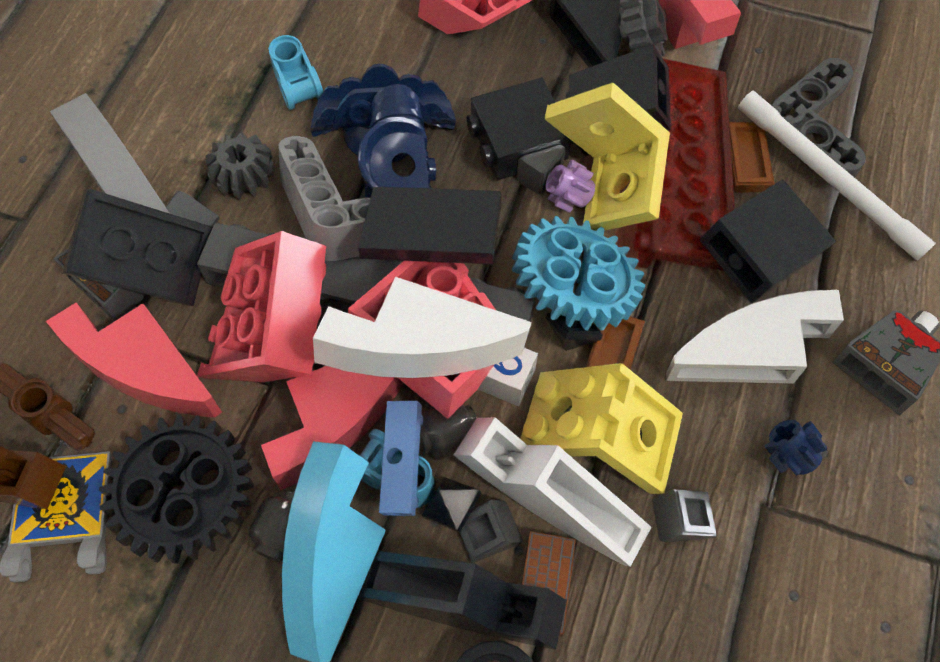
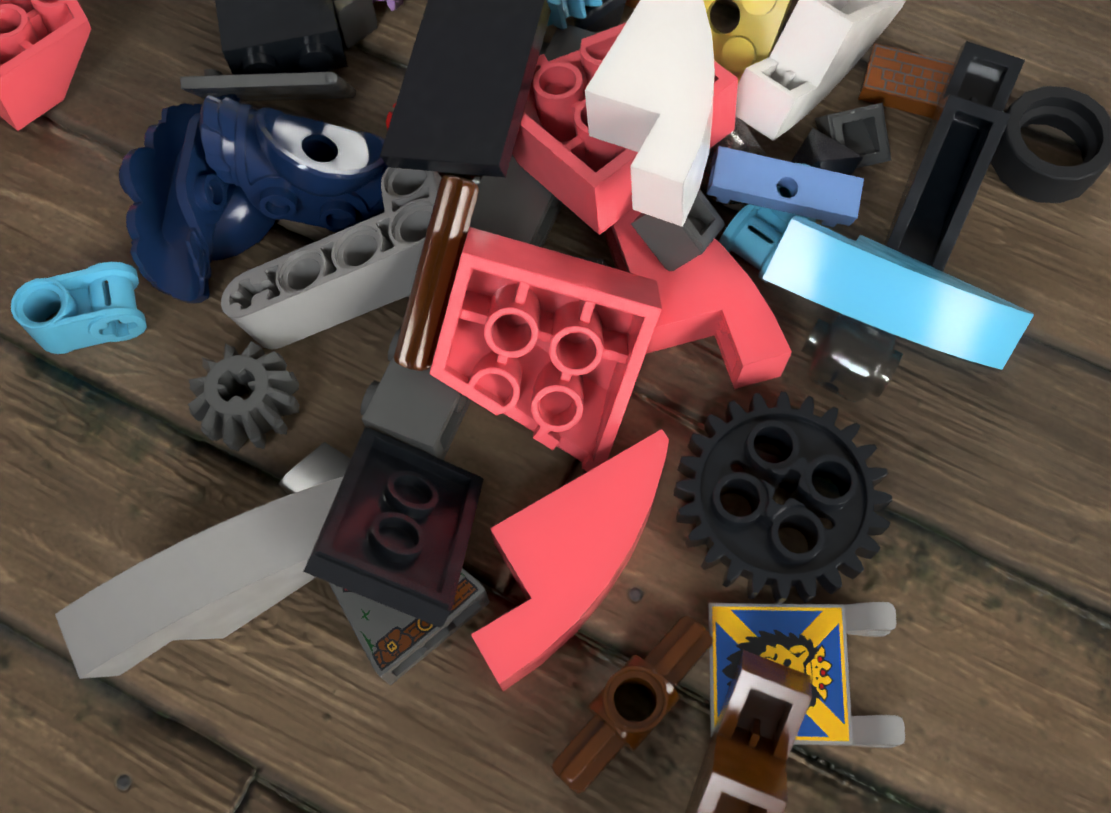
camera: 80 degrees left, 5 degrees up
(316, 229) = (436, 272): none -> reddish brown axle
(361, 392) = (679, 244): none -> dark grey slope
(455, 140) = (269, 86): none -> dark grey container

